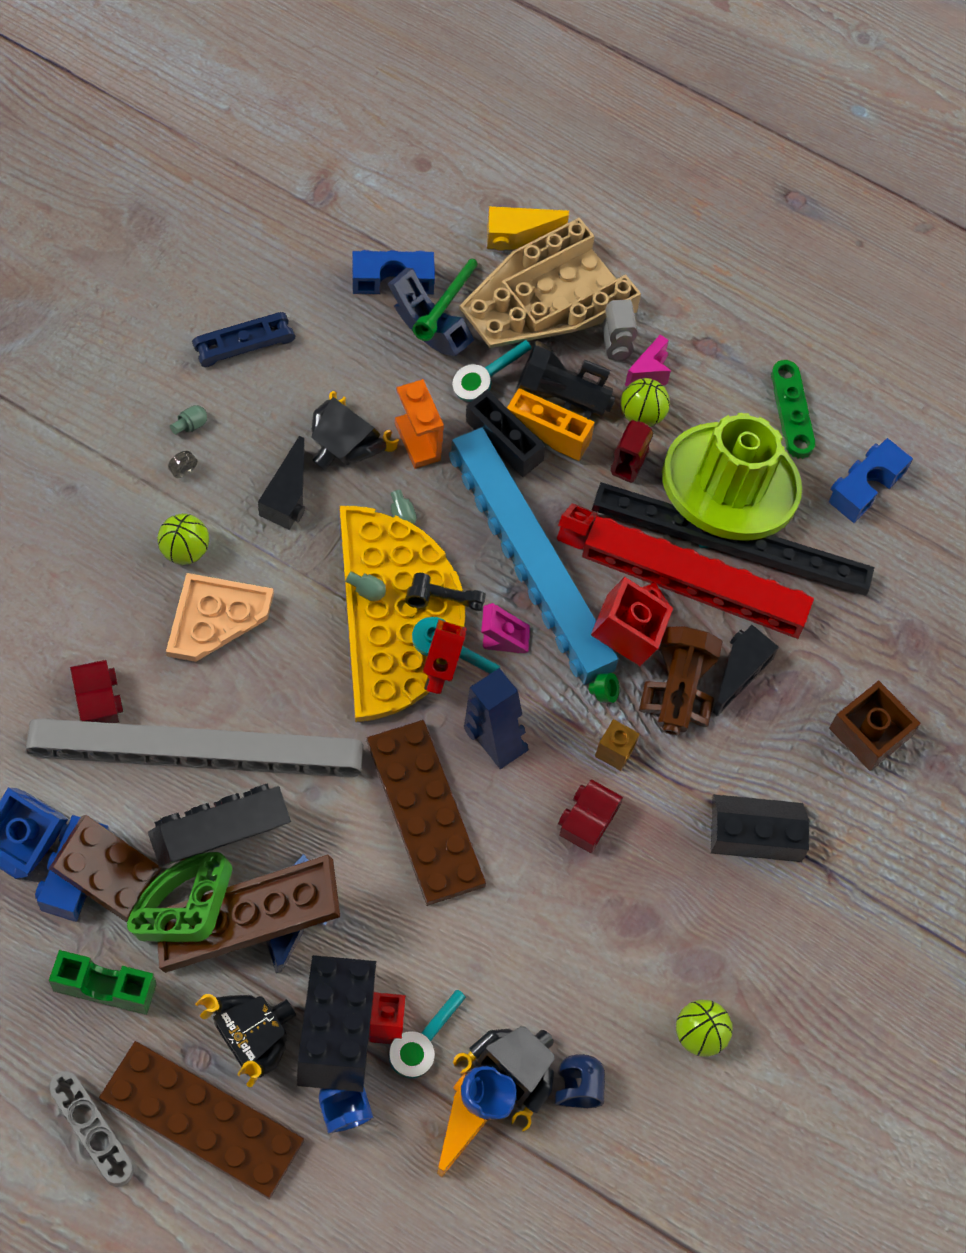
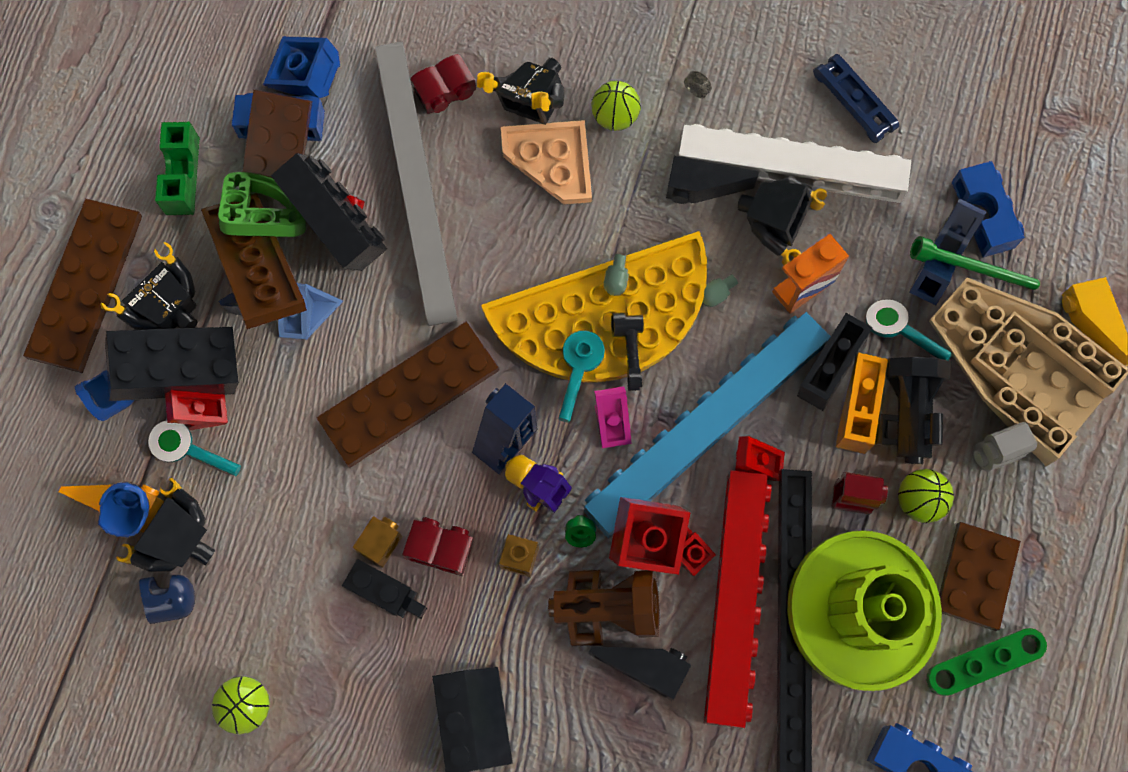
camera: 85 degrees right, 10 degrees up
(91, 1128) = (56, 198): light grey beam -> none
(138, 610) = (529, 91): none -> black torso
(190, 420) = (749, 78): sand green cylinder -> none
(294, 410) = (815, 165): none -> white brick
(447, 645) = (546, 359): red torso -> none
(553, 708) = (540, 483): none -> dark purple piece
(571, 869) = (378, 540): none -> pearl gold brick
(618, 879) = (383, 590): none -> black hinge
(651, 363) = (971, 488): dark pink slope -> none
(718, 388) = (978, 576): none -> reddish brown plate

